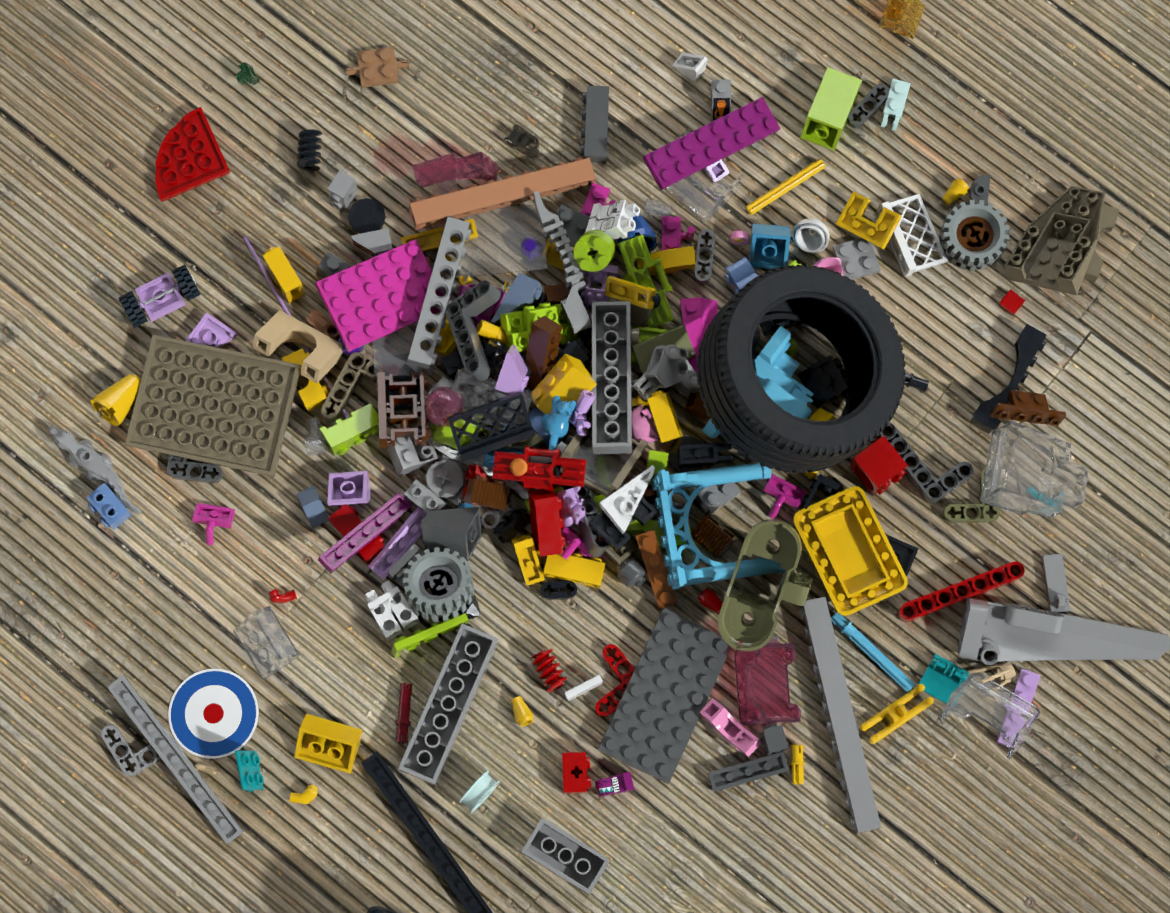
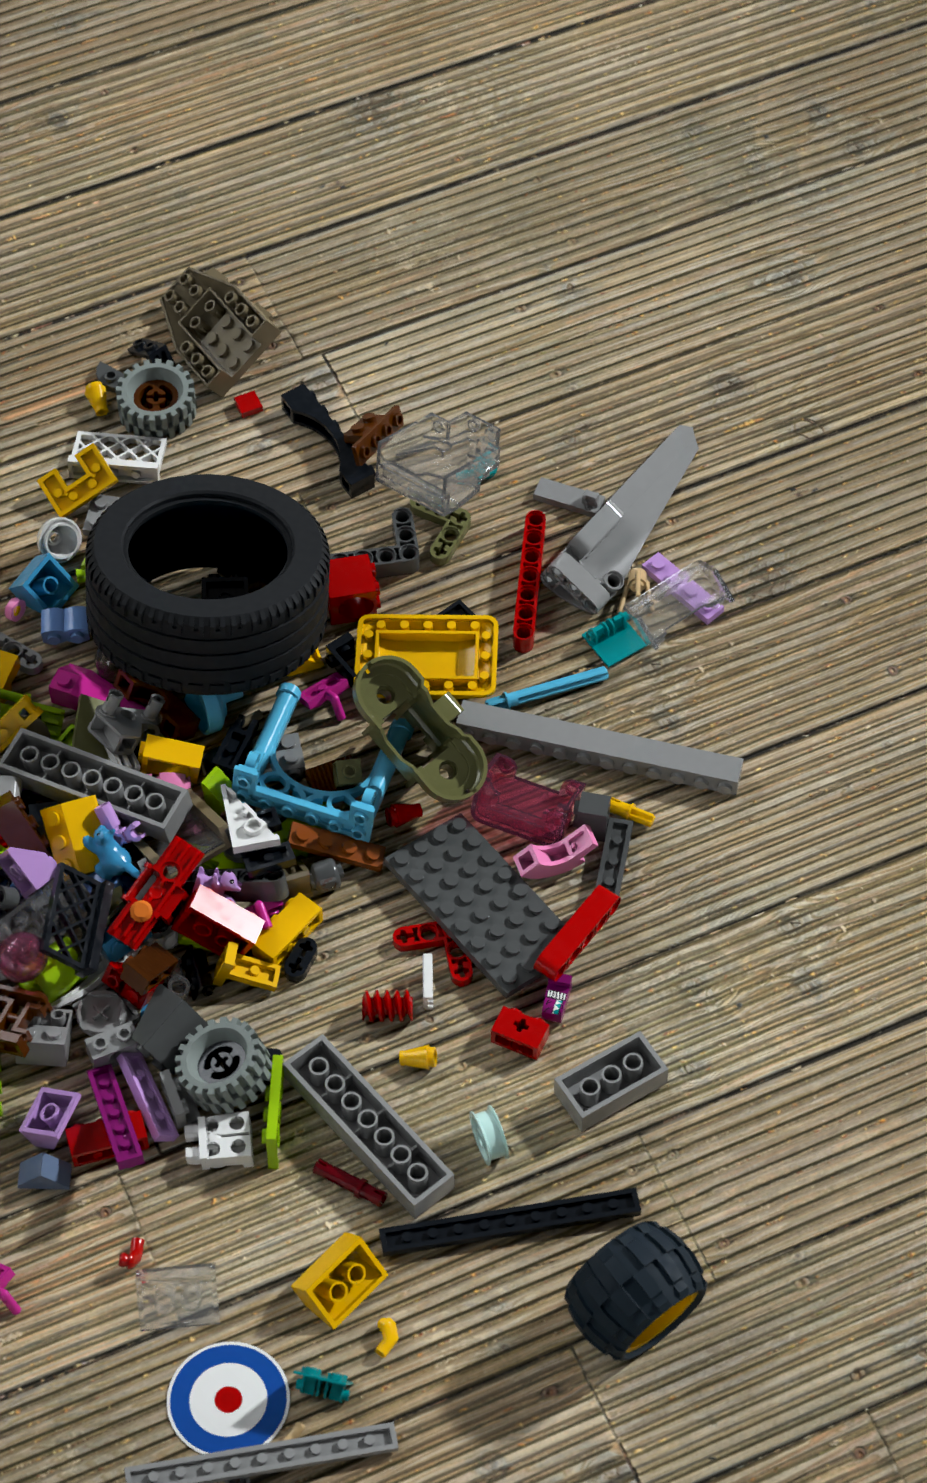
camera: 60 degrees left, 20 degrees down
(668, 776) = (577, 933): none -> red beam
(714, 547) = (347, 773): none -> olive brick
(896, 714) = (626, 694): yellow piece -> none
(1016, 208) = (151, 350): none -> black bracket

